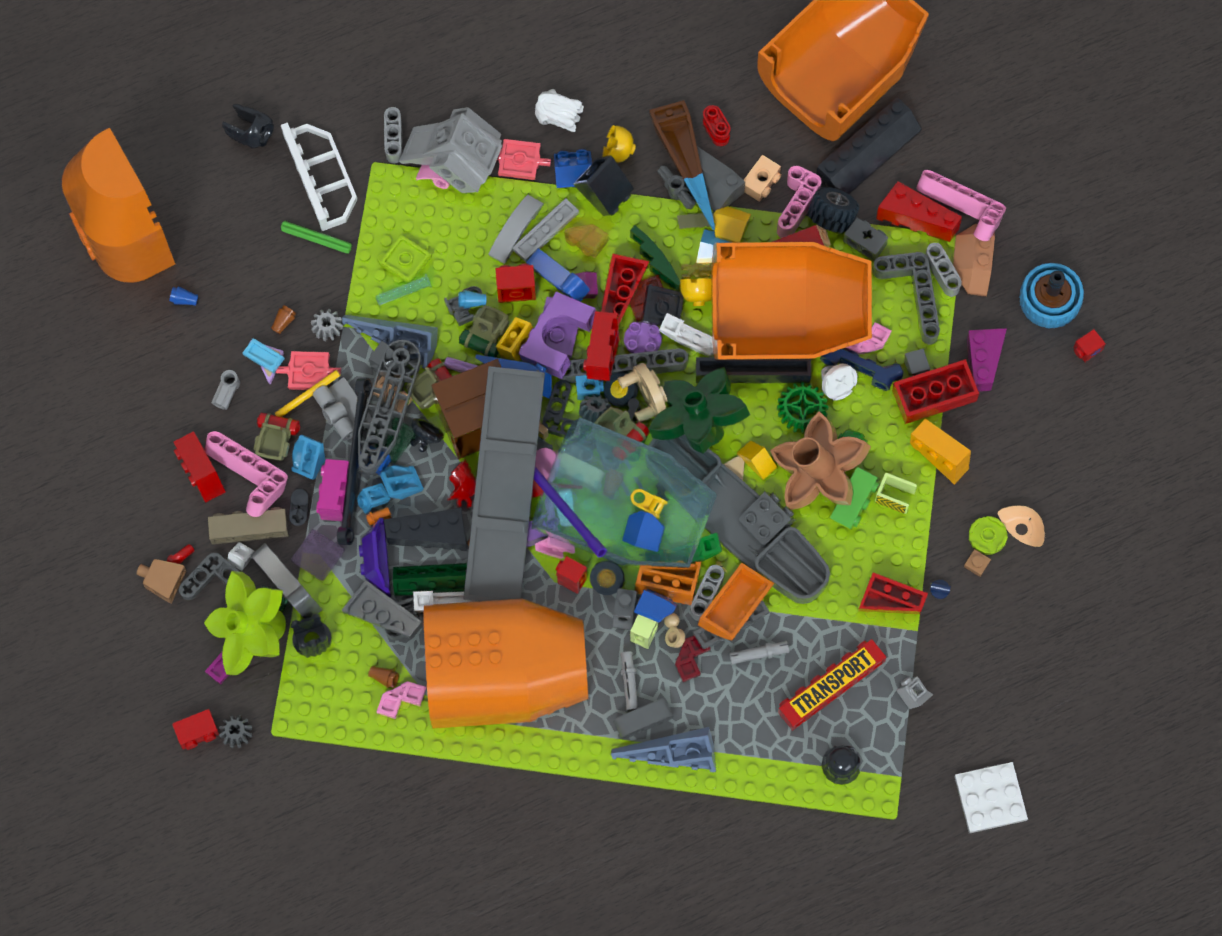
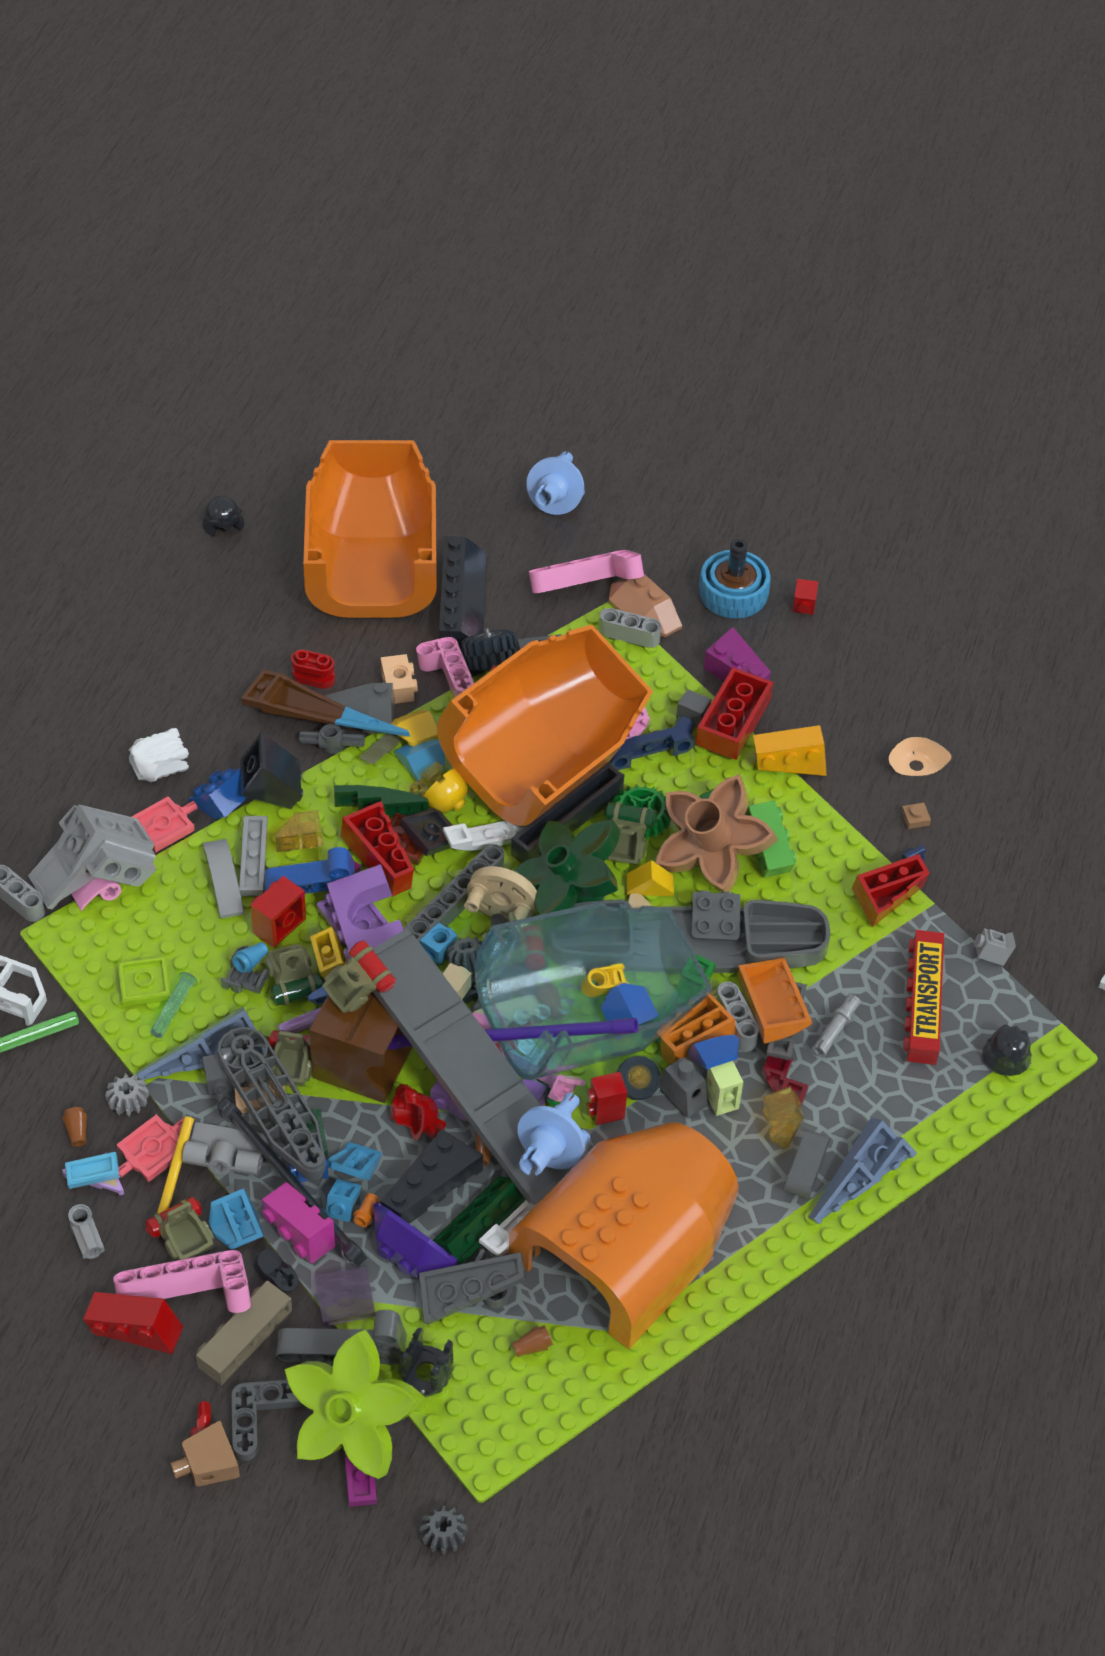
camera: 50 degrees left, 20 degrees down
(196, 729) = (401, 1565): red brick -> none
(240, 556) = (264, 1367): white slope -> none
(407, 692) = (563, 1356): bright pink tile -> none
(425, 433) = (333, 1101): black hair -> none
(480, 380) = (357, 978): none -> olive piece
(499, 572) = (551, 1137): none -> light blue piece
(562, 421) = (458, 978): none -> tan brick
(602, 346) = (419, 892): red wedge -> none
(617, 395) = (470, 923): black wheel -> none
(619, 144) = (237, 740): yellow cylinder -> none
(628, 673) = (733, 1129): light grey pin -> none
(642, 338) = (439, 869): medium lavender dish -> none
(661, 678) = (784, 1114): none -> clear yellow slope
(674, 637) = (747, 1073): tan plate -> none
(773, 414) = (632, 825): none -> olive piece
(838, 381) = (646, 766): white tile -> none
(897, 483) = (800, 820): yellowish green piece -> none
(918, 212) = (561, 603): red wedge -> none
(920, 289) = (646, 660): dark grey beam -> none
(988, 535) = (898, 789): lime tile -> none
(1011, 119) = (555, 484): none -> light blue piece

